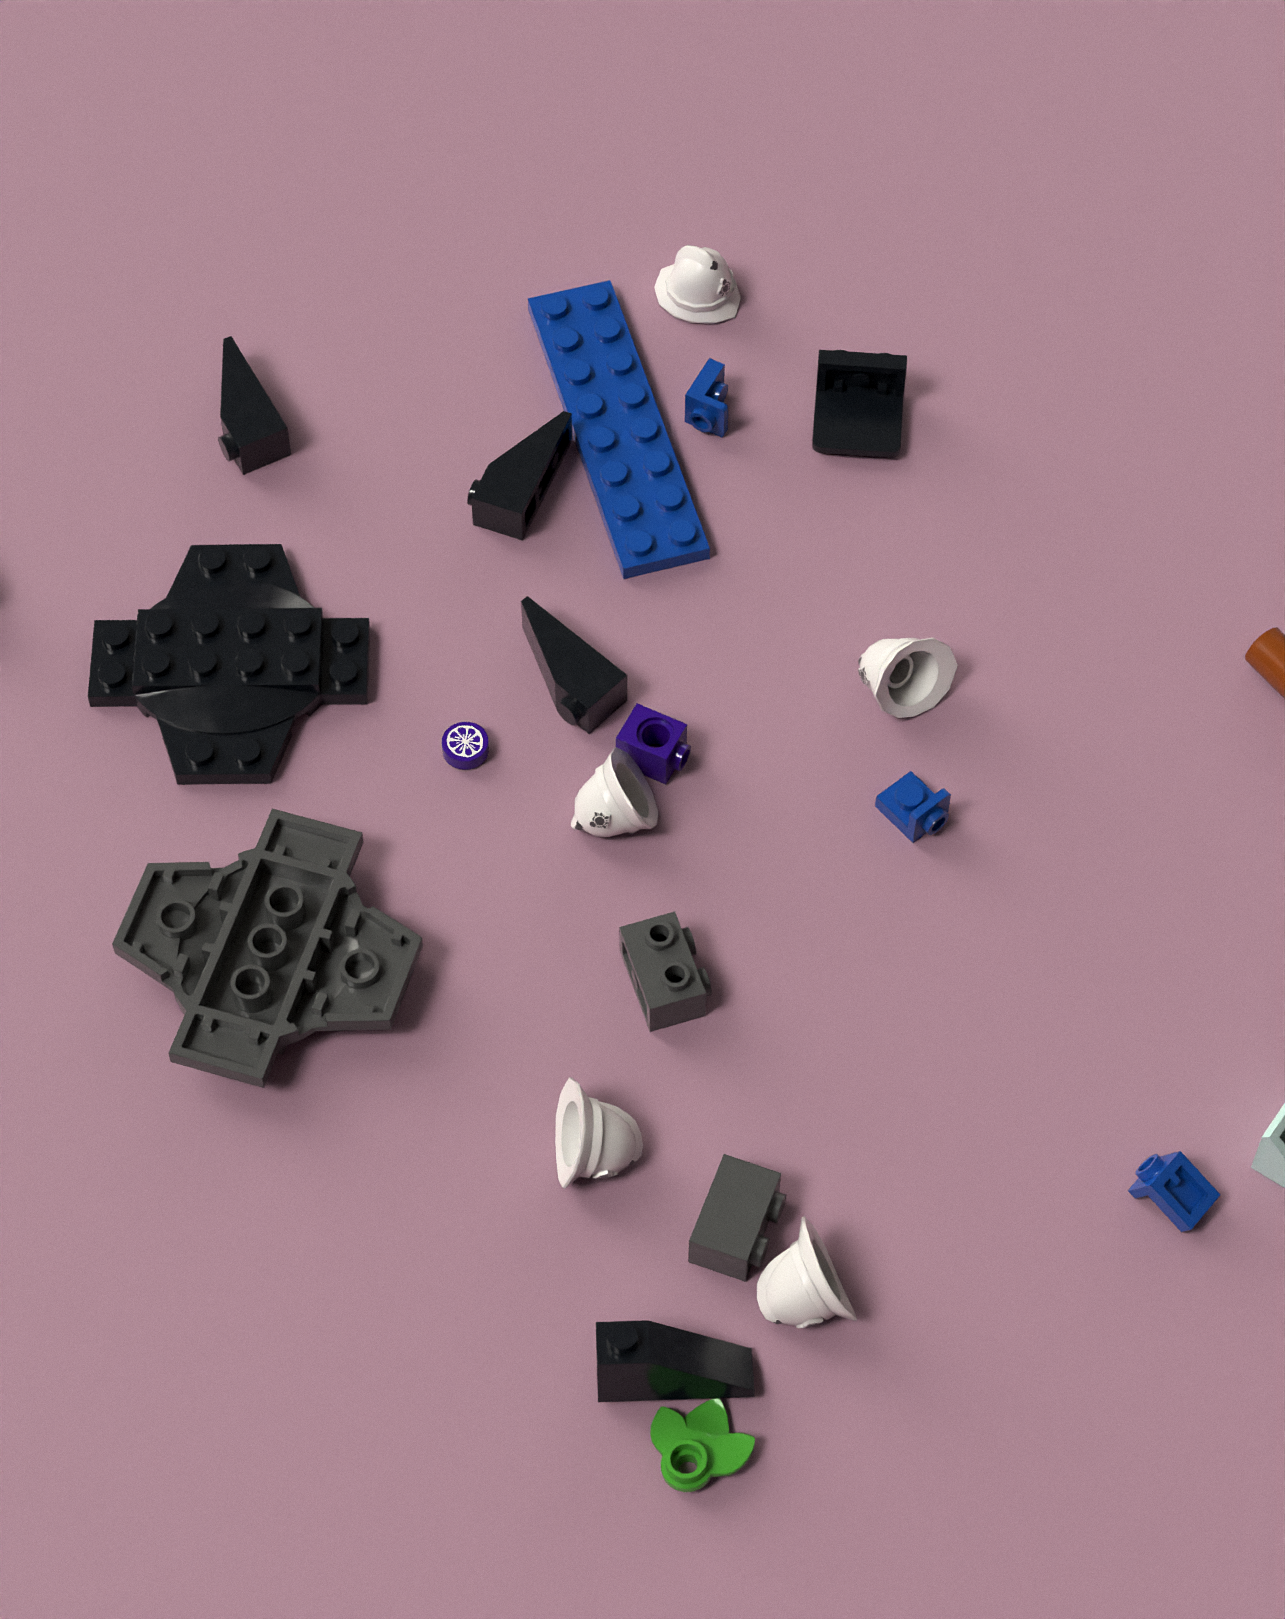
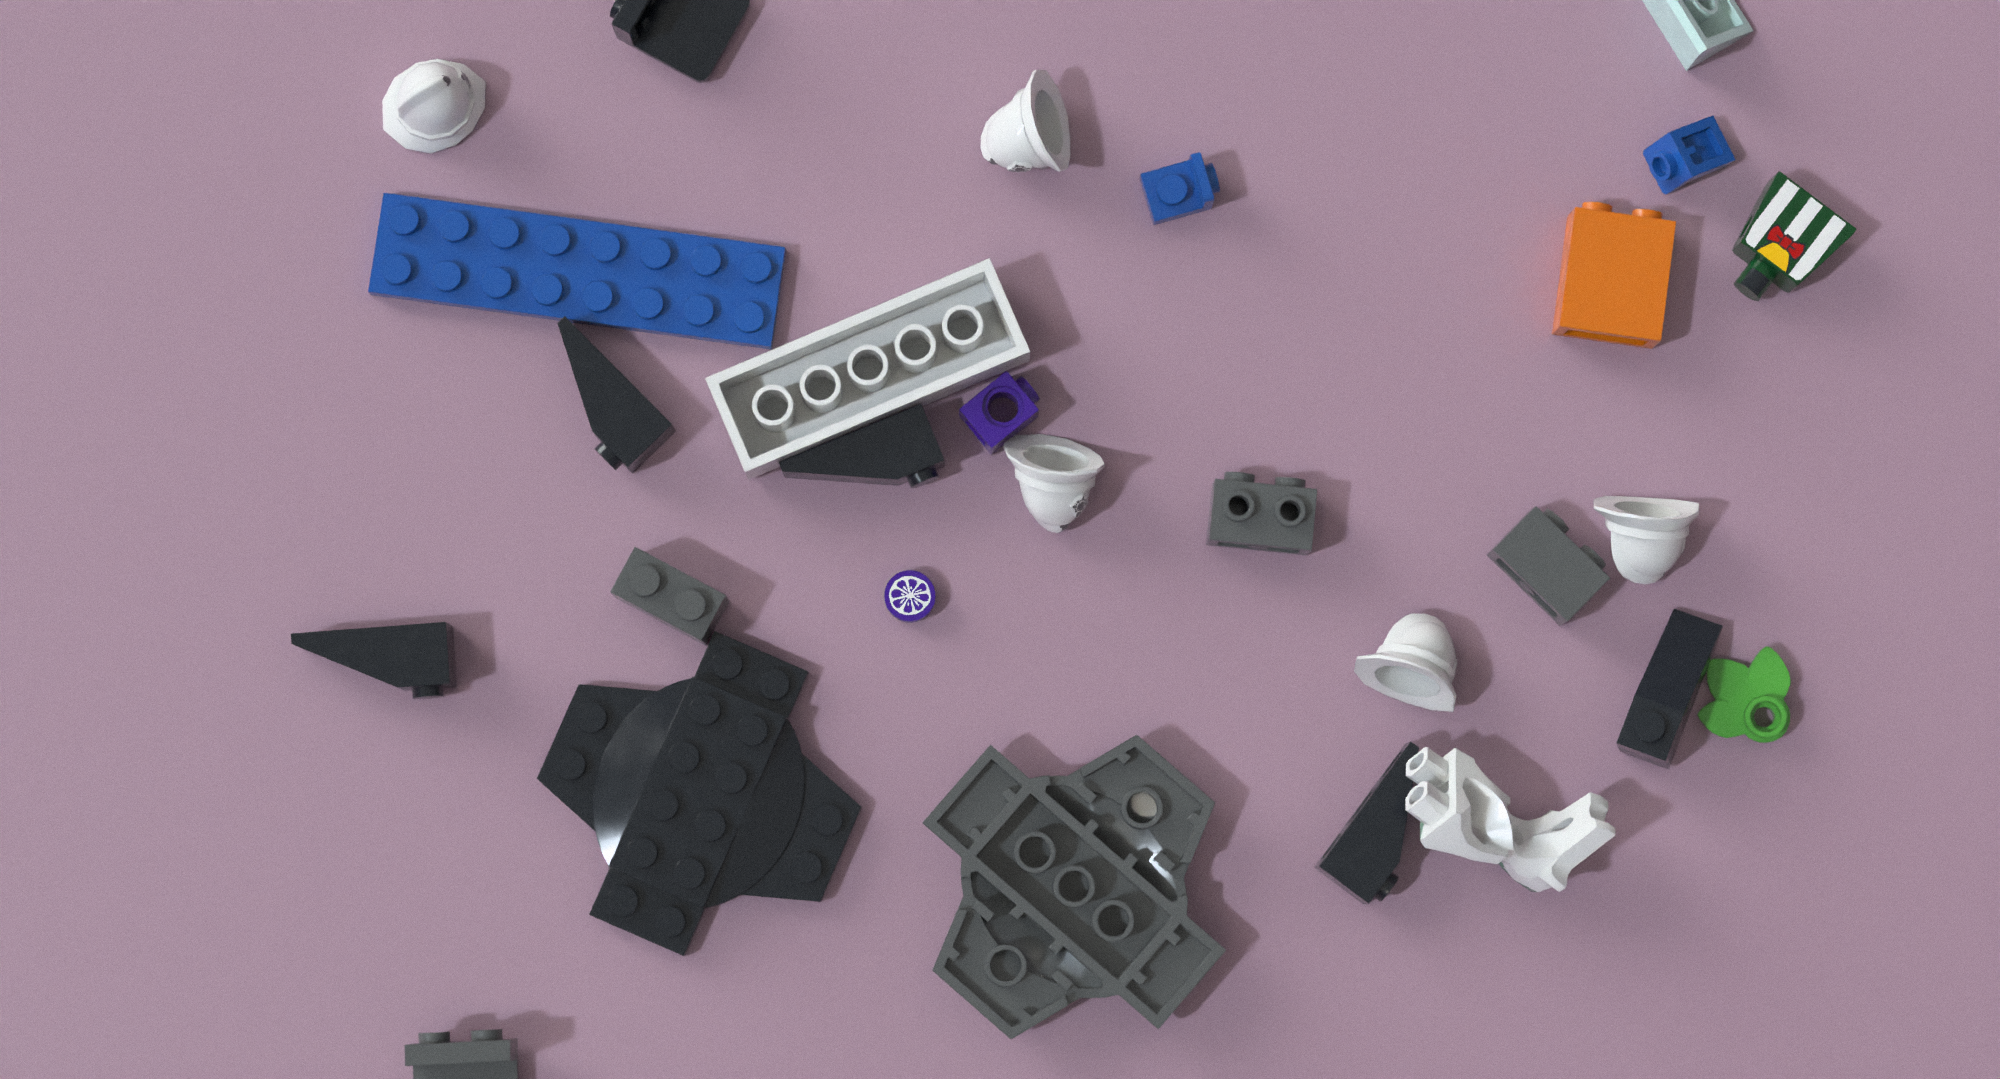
camera: 70 degrees left, 25 degrees up
(382, 572) = (670, 596): none -> dark grey brick
(422, 1169) = (1372, 839): none -> black slope
(461, 1222) = (1470, 818): none -> white hips
(663, 644) = (869, 367): none -> white brick
(705, 400) = (588, 160): blue bracket -> none
(1027, 1168) = (1614, 276): none -> orange brick
(1142, 1301) = (1786, 238): none -> torso

